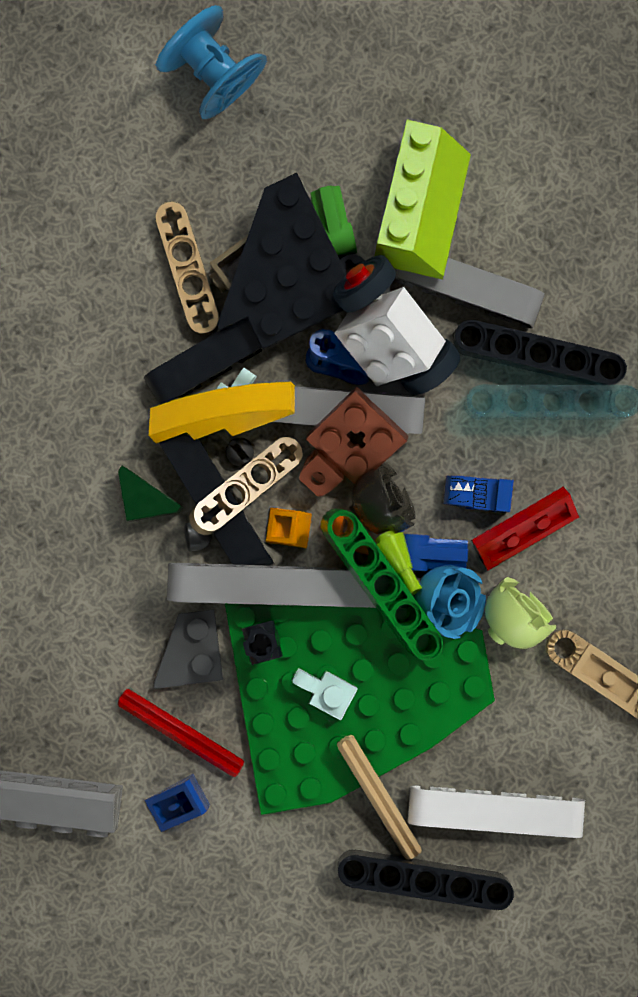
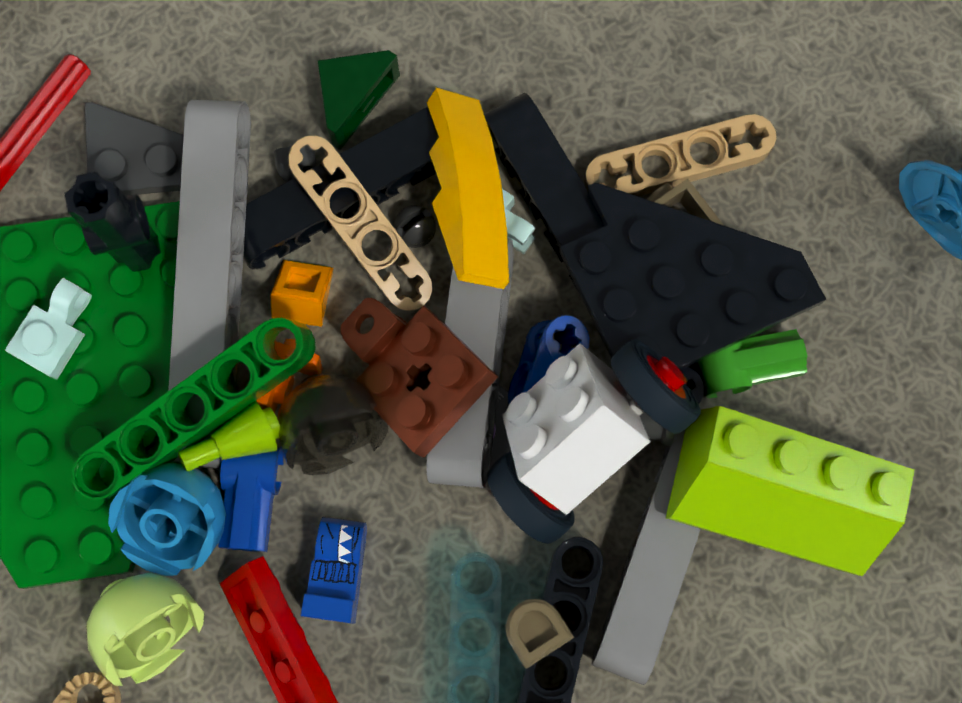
camera: 90 degrees right, 10 degrees down
(515, 361) = (535, 630): none -> dark tan tile

